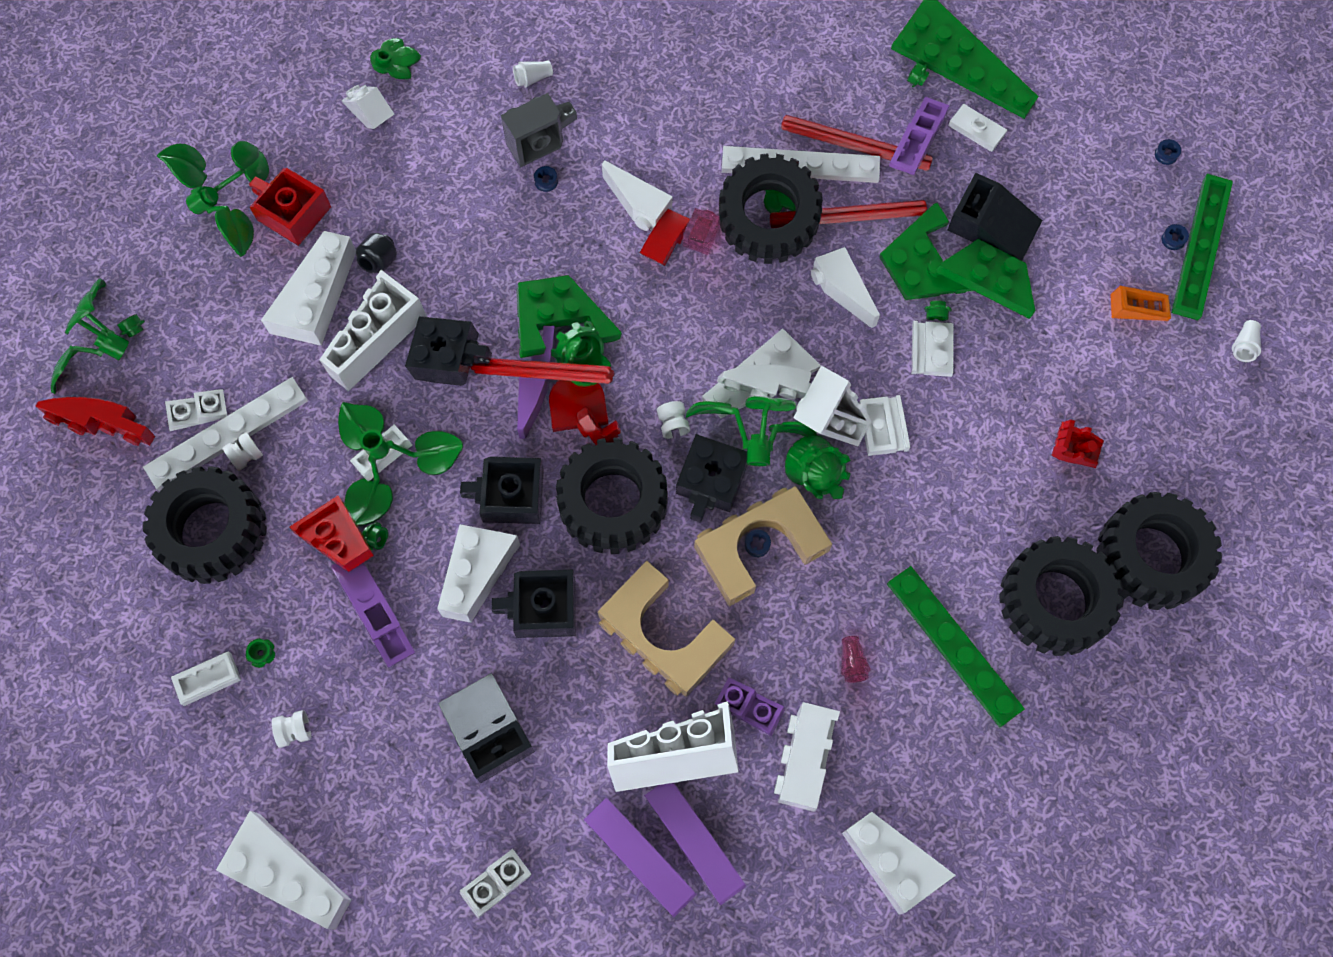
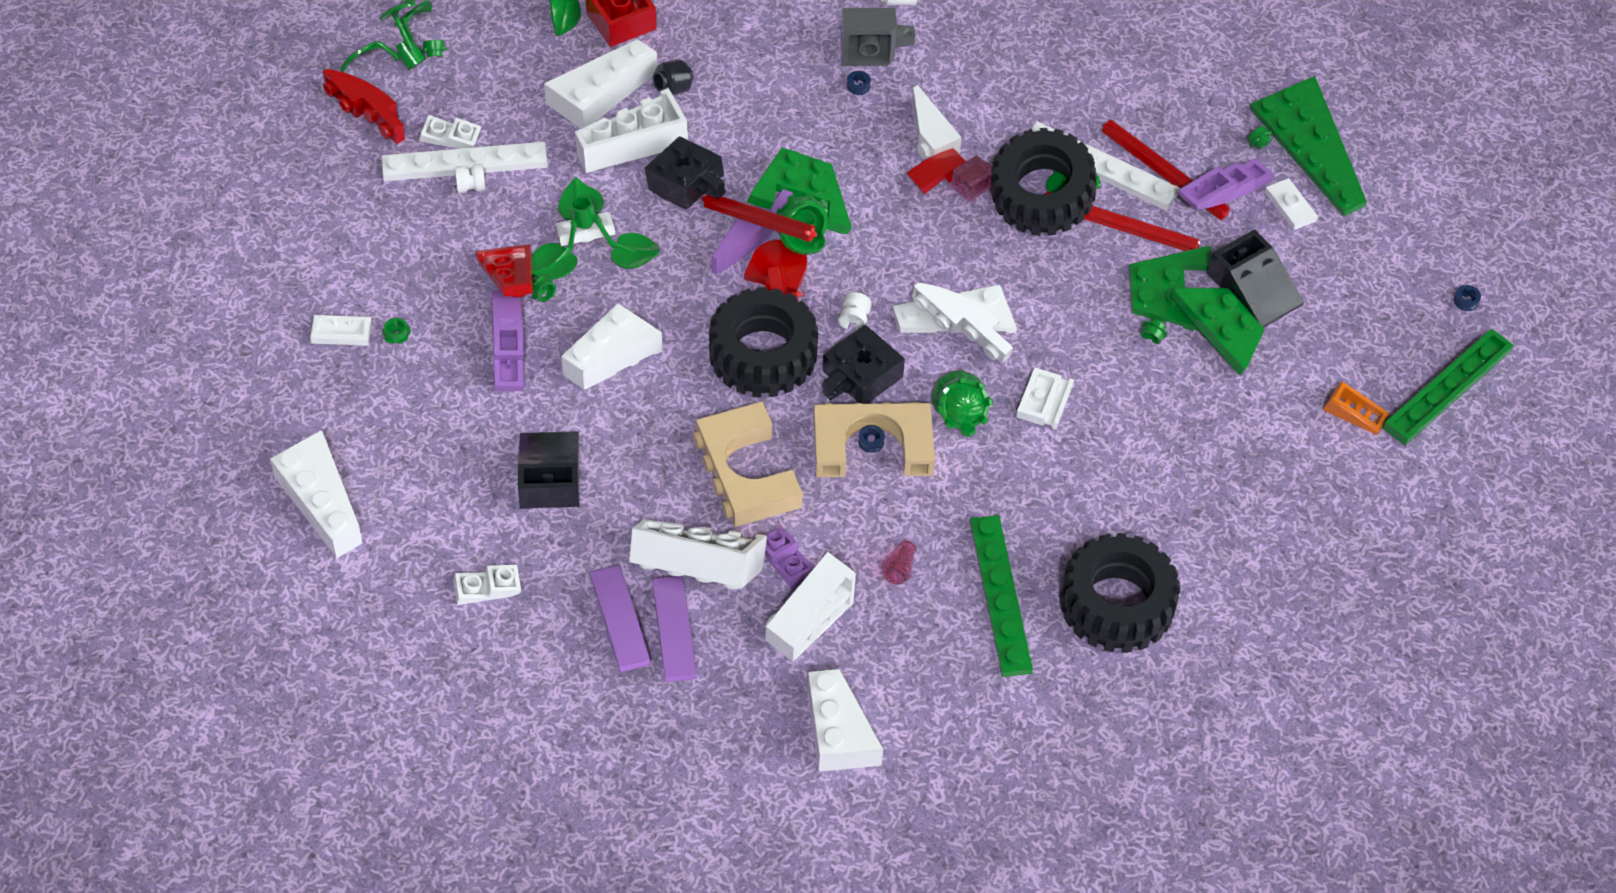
camera: 25 degrees right, 15 degrees down
(184, 496) = (412, 241): black tyre -> none
(290, 728) = (387, 395): white wheel -> none
(500, 476) = (677, 300): black hinge -> none
(524, 608) = (652, 395): black hinge -> none
(759, 446) = (914, 353): green plant -> none
(833, 409) = (996, 350): white wedge -> none
(843, 284) = (1077, 272): white slope -> none
(932, 348) = (1131, 360): white plate -> none
(1077, 445) = (1217, 490): red hand -> none
(1168, 235) = (1427, 361): dark blue bush -> none
(1184, 526) = (1232, 631): black tyre -> none
(1248, 343) = (1440, 482): white cone -> none

